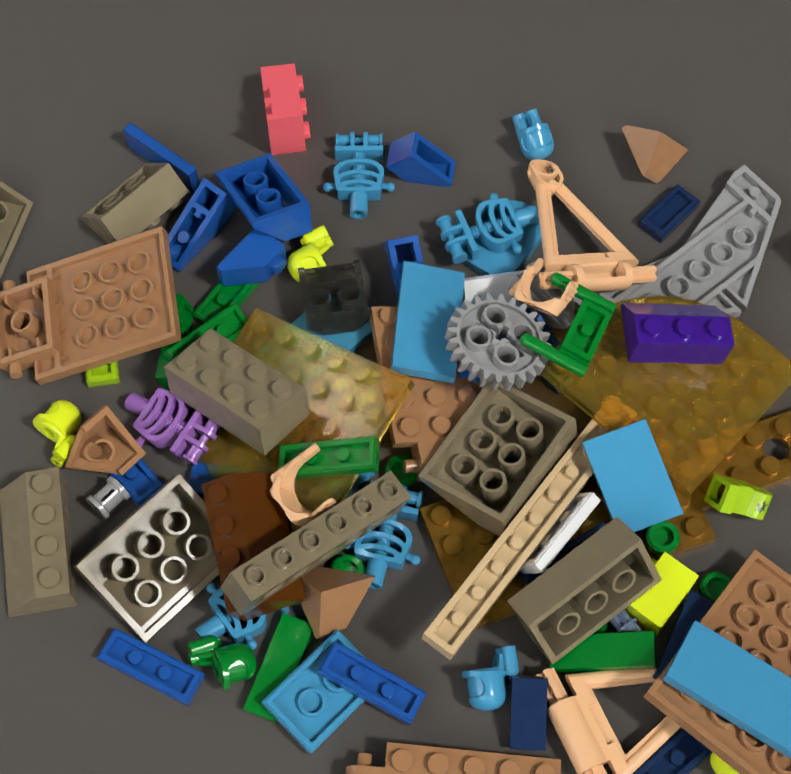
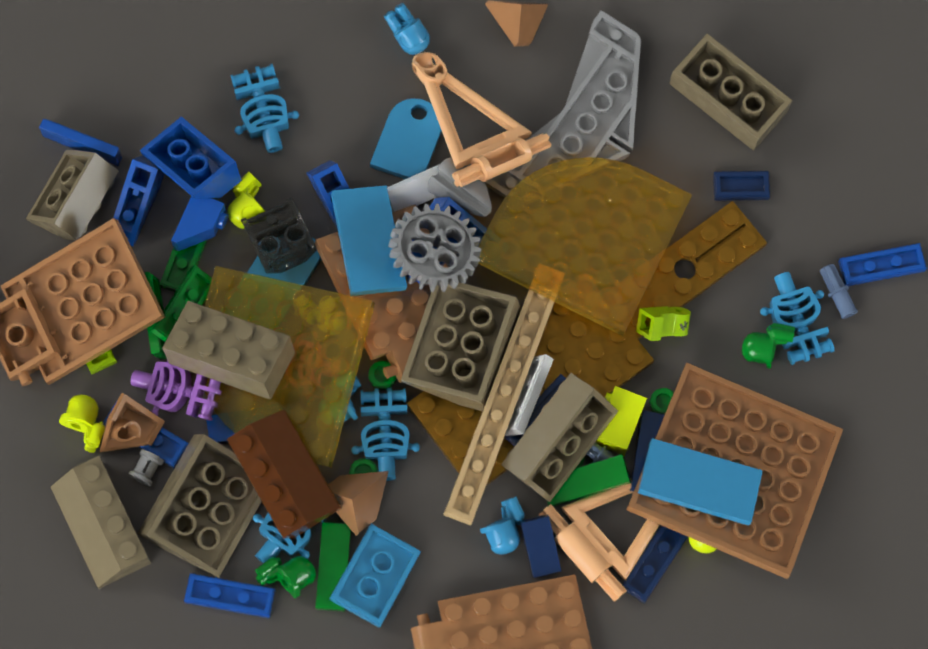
camera: 20 degrees left, 10 degrees up
(284, 490) = (296, 426): light nougat helmet -> none
(285, 109) = (176, 63): coral wedge -> none
(314, 543) = (337, 461): dark tan brick -> none
(335, 457) = (323, 387): green tile -> none
(371, 683) = (411, 558): blue tile -> none
(420, 161) = (315, 84): blue slope -> none
(505, 231) = (411, 124): dark azure torso -> none
(552, 307) = (442, 197): light nougat helmet -> none
(583, 333) = (503, 219): green plate -> none
(632, 476) = (574, 332): dark azure tile -> none
(662, 538) = (610, 374): green tile -> none
(669, 213) = (546, 73): dark blue tile -> none
(676, 333) = (579, 195): dark purple slope -> none

